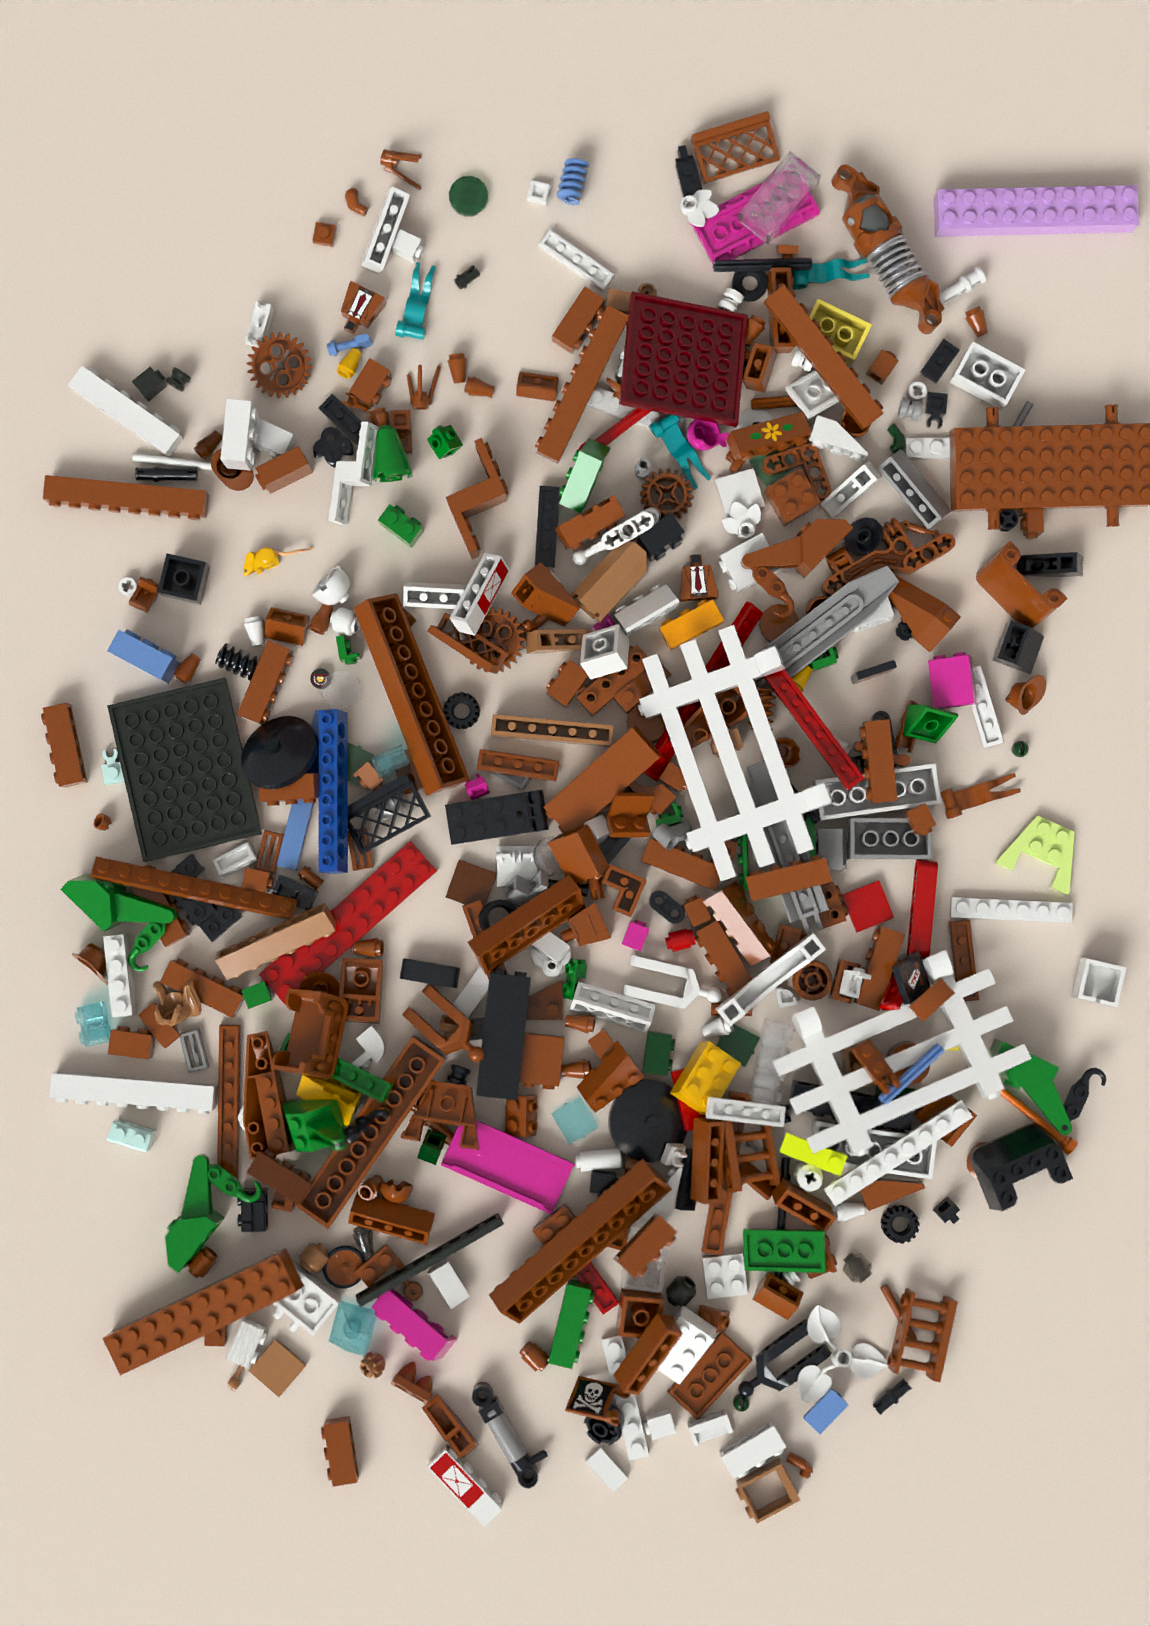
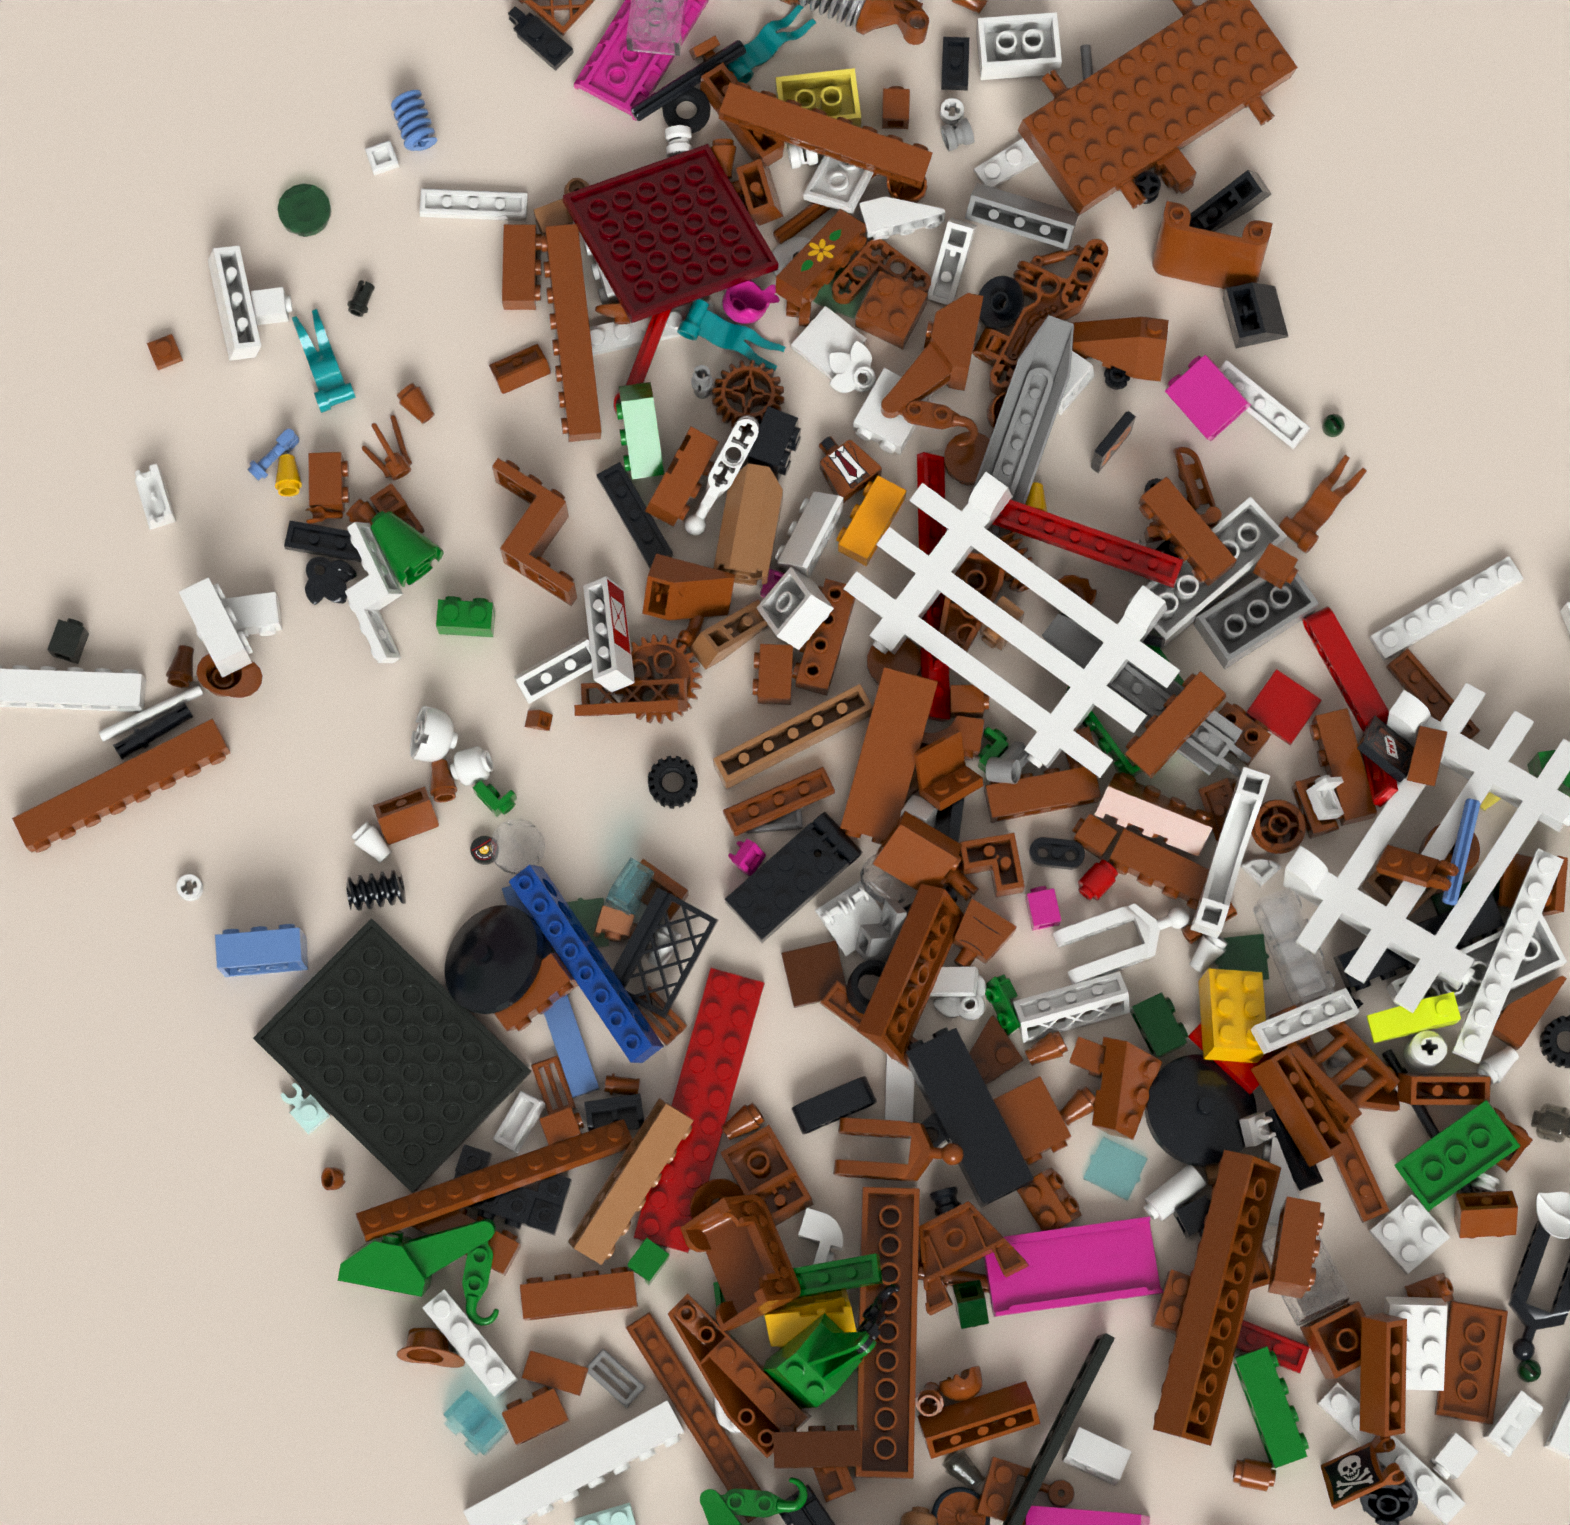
camera: 30 degrees left, 10 degrees down
(64, 745) = (231, 1116): dark orange brick -> none
(144, 594) = (215, 882): dark orange bracket -> none
(176, 1005) = (562, 1333): medium nougat hair -> none
(178, 379) = (98, 615): pearl dark grey wheel -> none
(183, 579) = (251, 835): black brick -> none
(187, 668) = (320, 937): dark orange cone -> none
(265, 558) = (331, 754): yellow animal -> none
(265, 682) = (423, 895): dark orange brick -> none
(283, 470) = (290, 638): dark orange brick -> none
(295, 375) = (183, 524): dark orange gear -> none
(352, 202) = (176, 297): dark orange arm -> none
(361, 307) = (260, 404): dark orange torso -> none
(391, 159) = (189, 223): dark orange plant -> none
(411, 693) = (603, 796): dark orange brick -> none
(444, 441) = (455, 492): green brick -> none
(448, 1025) = (896, 1150): medium nougat tile -> none
(477, 387) = (452, 411): dark orange cone -> none
(635, 690) = (856, 636): dark orange slope -> none
(681, 1291) = (1371, 1283): pearl dark grey head -> none
(701, 208) = (579, 63): white plate -> none
(823, 662) = (1049, 467): green bracket -> none
(832, 846) = (1196, 657): light grey brick -> none
(899, 438) = (966, 174): dark green arm -> none
(927, 722) = (1211, 458): green slope -> none
(935, 406) = (984, 114): black plate -> none
(1027, 694) = (1299, 359): dark orange piece -> none
(1047, 843) = (1437, 509): yellowish green wing -> none

